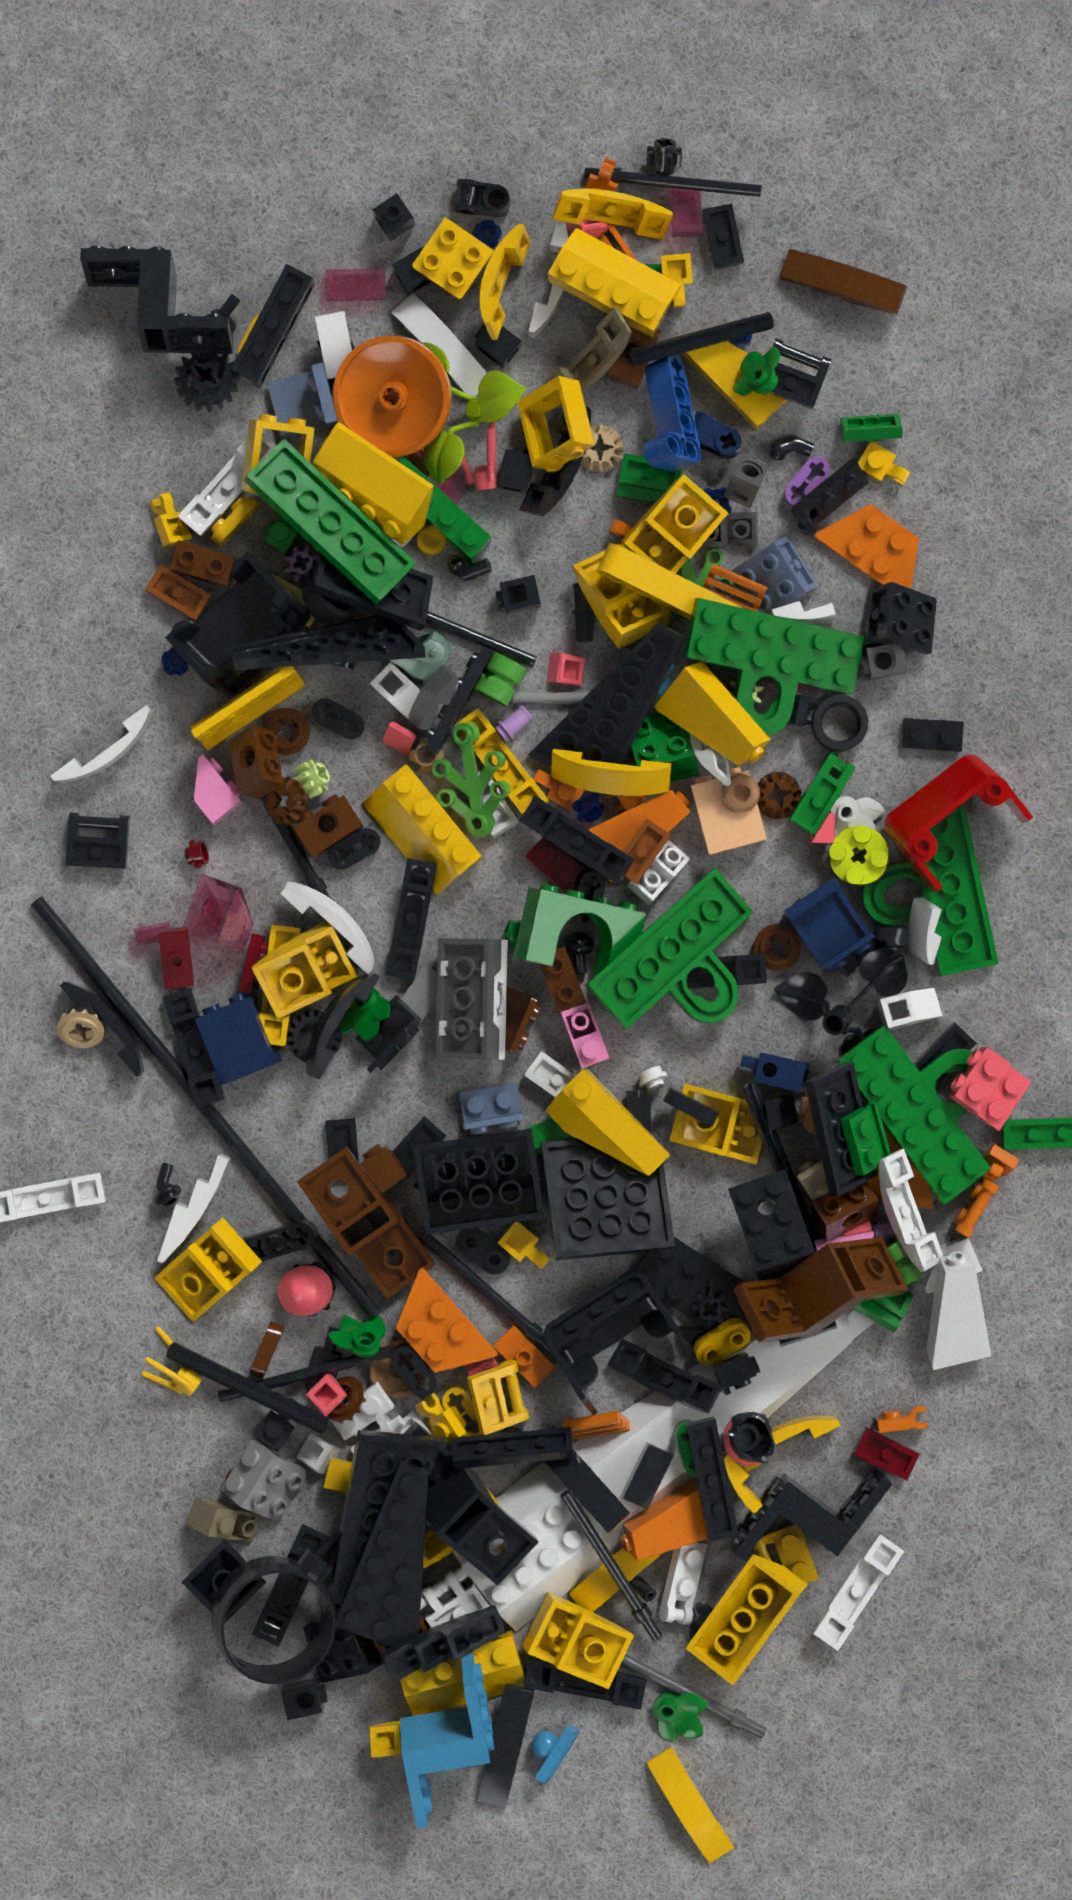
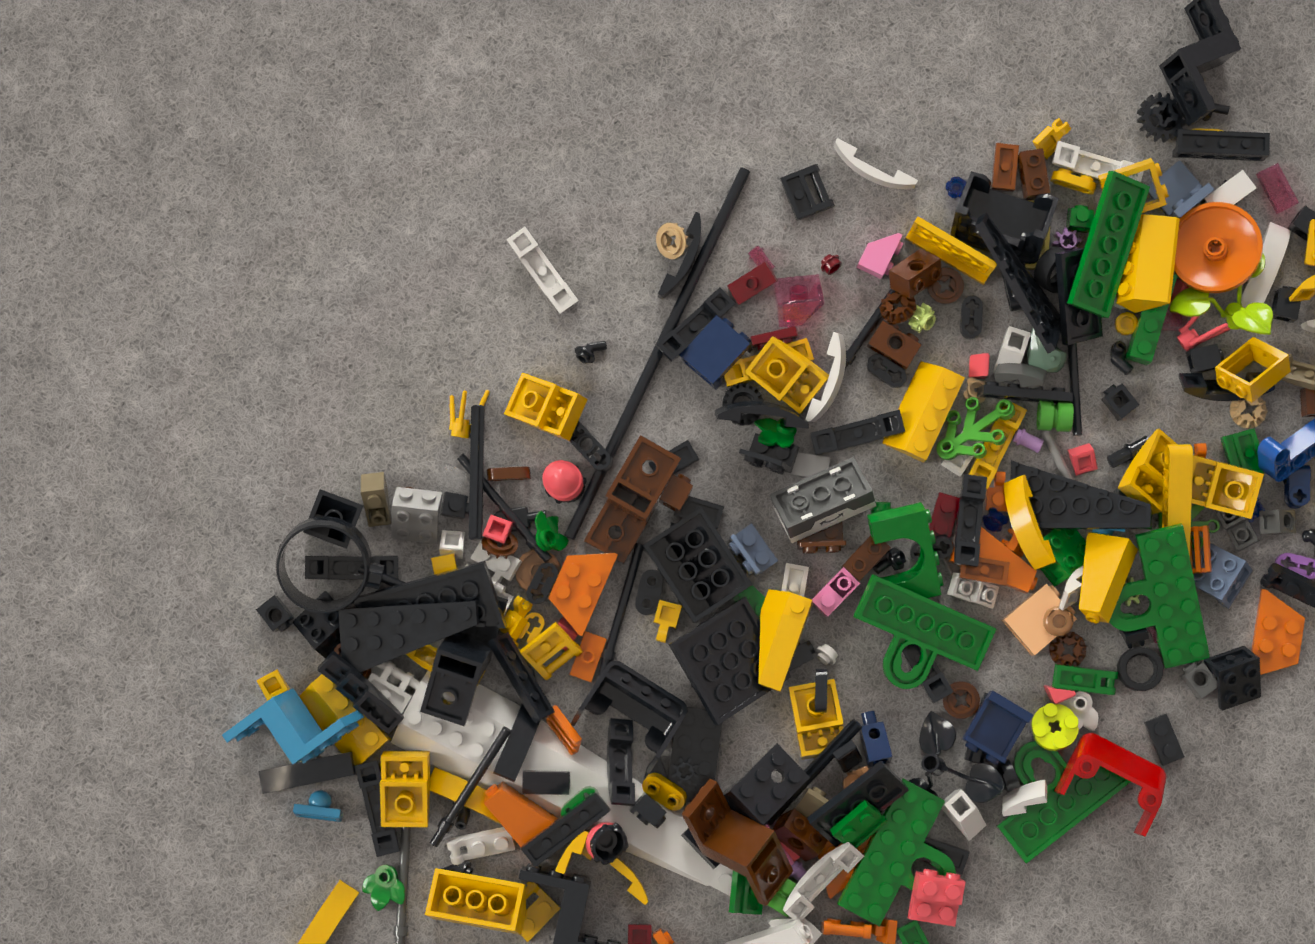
camera: 70 degrees right, 5 degrees down
(187, 1216) = (574, 375): white slope -> none
(817, 616) = (1209, 618): white slope -> none

